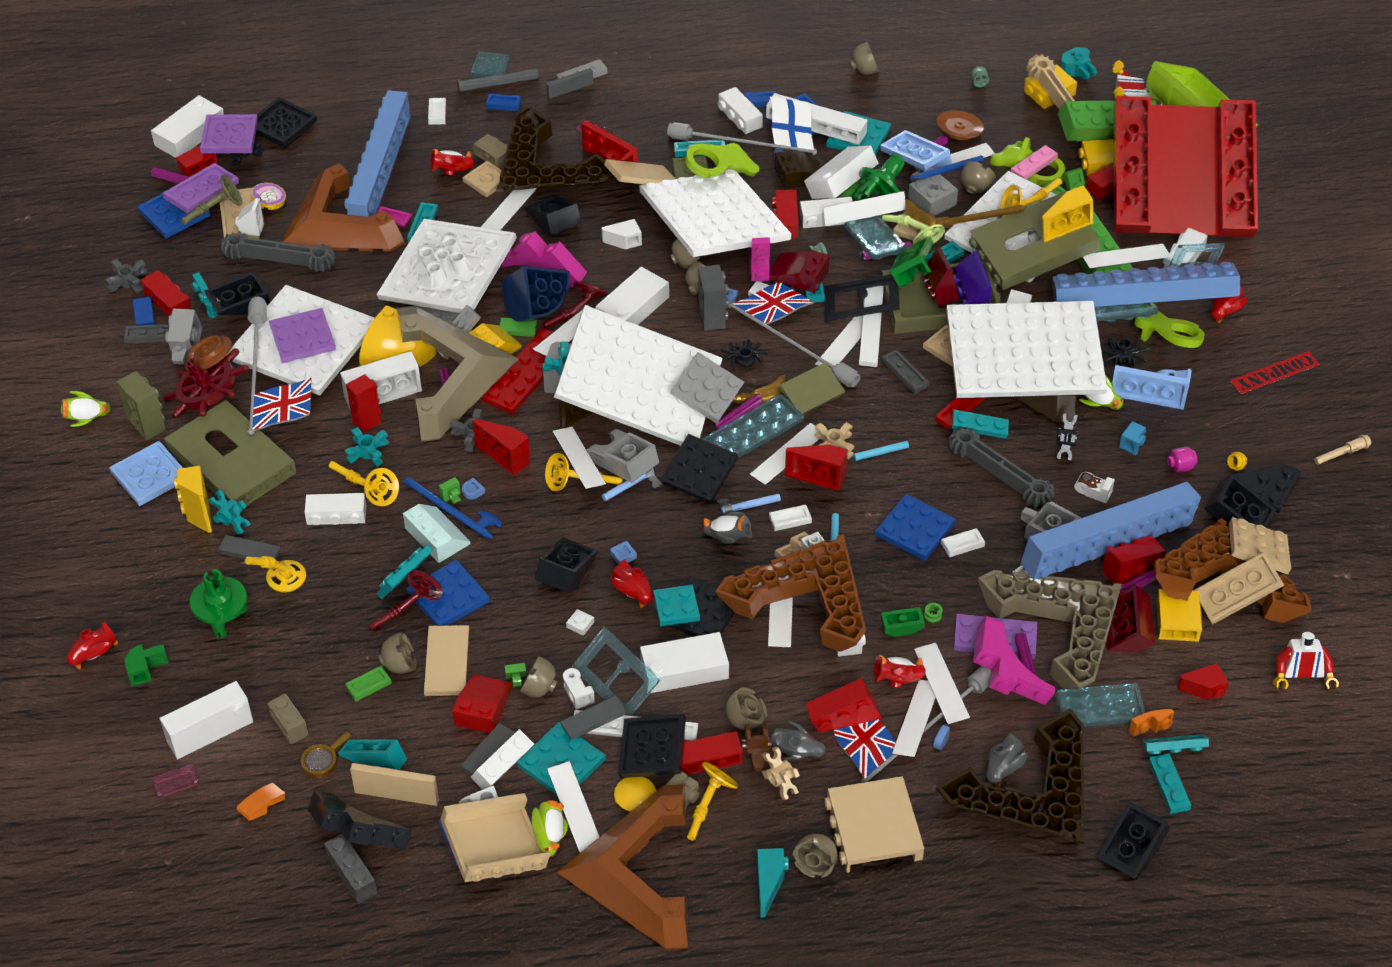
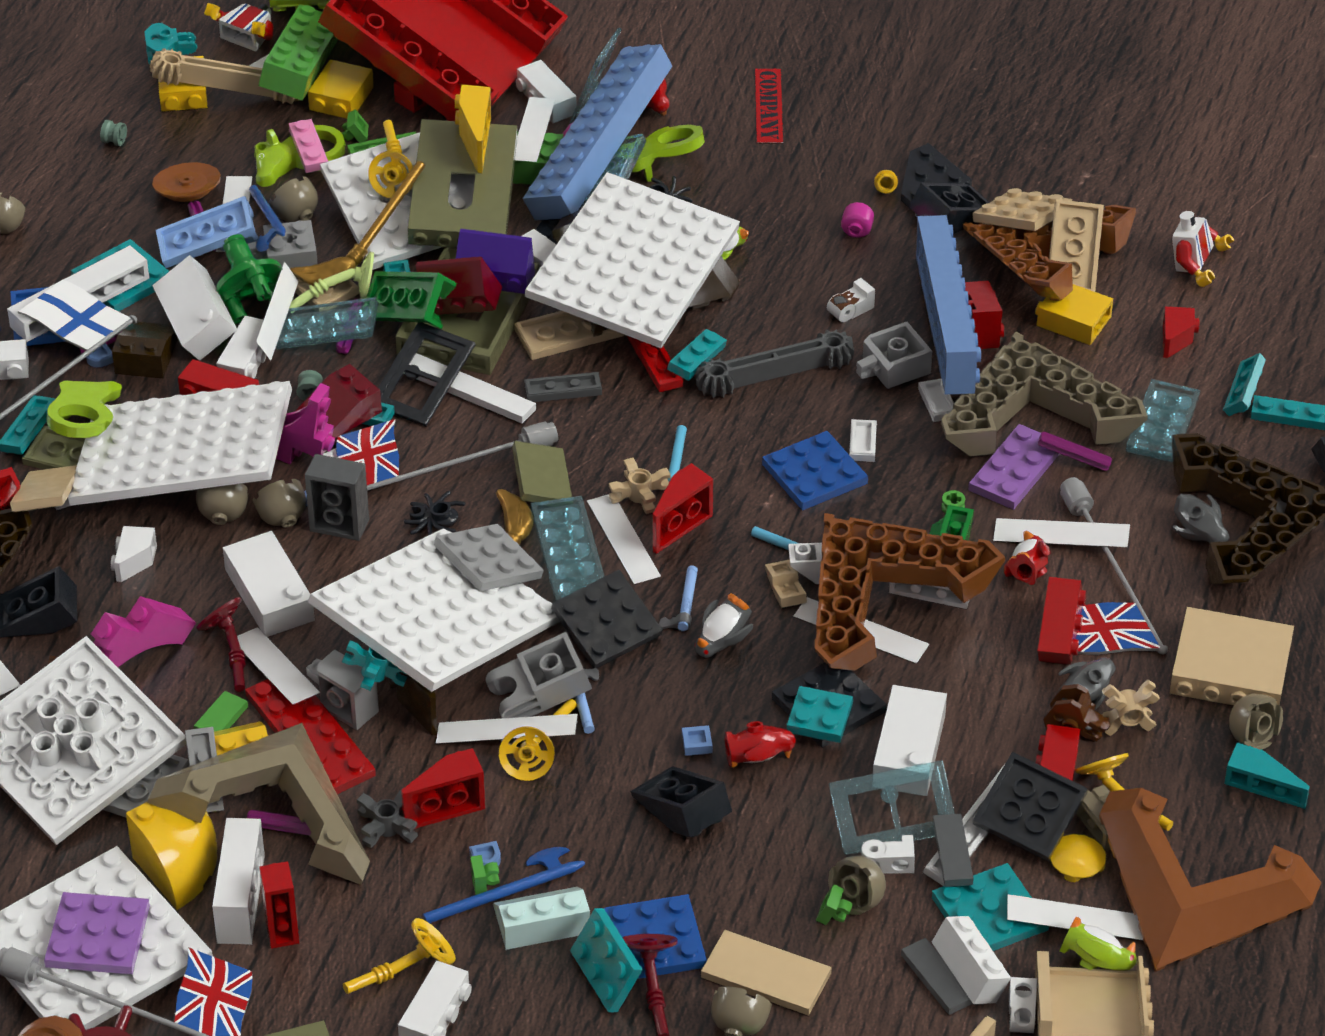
camera: 65 degrees left, 5 degrees down
(366, 446) = (340, 939): teal pin -> none
(481, 703) = (861, 955): red slope -> none
(534, 292) = (192, 673): dark blue brick -> none
(580, 622) = (780, 821): white plate -> none
(744, 408) = (535, 548): magenta axle -> none
(745, 708) = (1017, 709): dark tan cylinder -> none
(790, 517) = (731, 571): white tile -> none
(843, 342) = (475, 425): white sticker -> none
(915, 720) = (1102, 574): white sticker -> none
(941, 737) = (1141, 560): medium blue tile -> none
(1006, 669) = (1066, 464): dark pink arch -> none
(1067, 436) = (772, 288): pin -> none
(1101, 182) = (381, 103): red brick -> none
(1131, 623) = (1072, 345): dark red slope -> none
(1133, 438) = (801, 244): dark azure brick -> none
(1140, 581) = (1007, 320): magenta axle -> none
(1152, 387) = (747, 188): light blue plate -> none
(1155, 720) = (1209, 386): orange slope -> none
(1362, 442) = (917, 84): tan pin -> none

